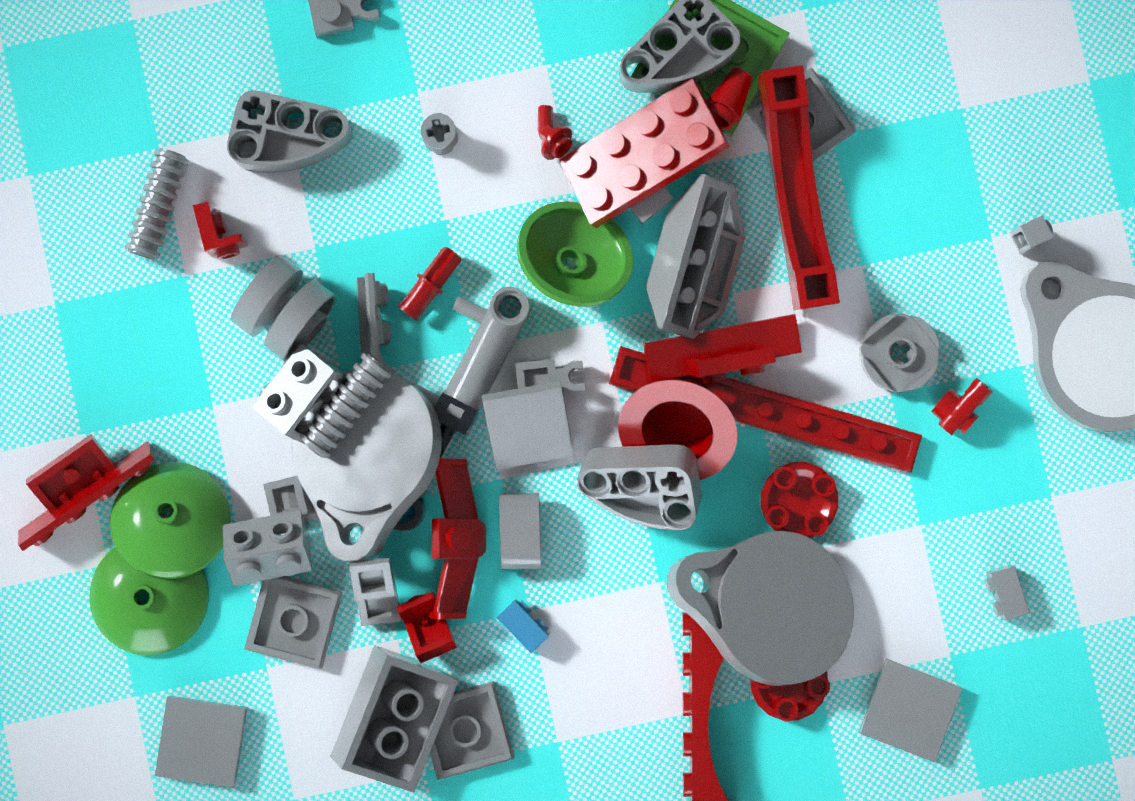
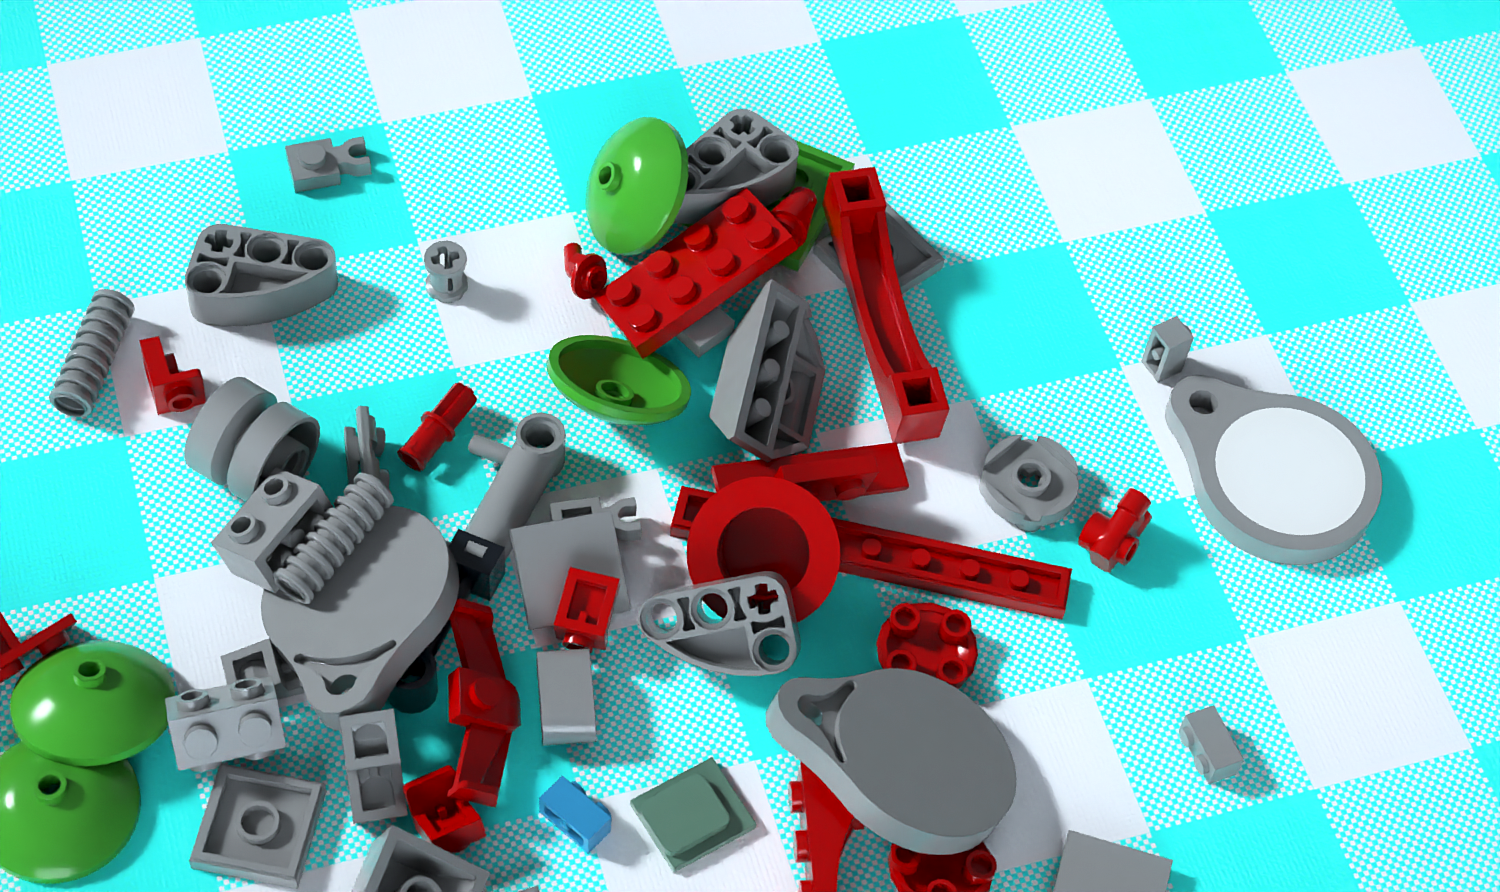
camera: 10 degrees left, 30 degrees down
(538, 463) = (586, 609): none -> red bracket
(600, 64) = (637, 186): none -> bright green dish
(610, 626) = (692, 814): none -> sand green piece

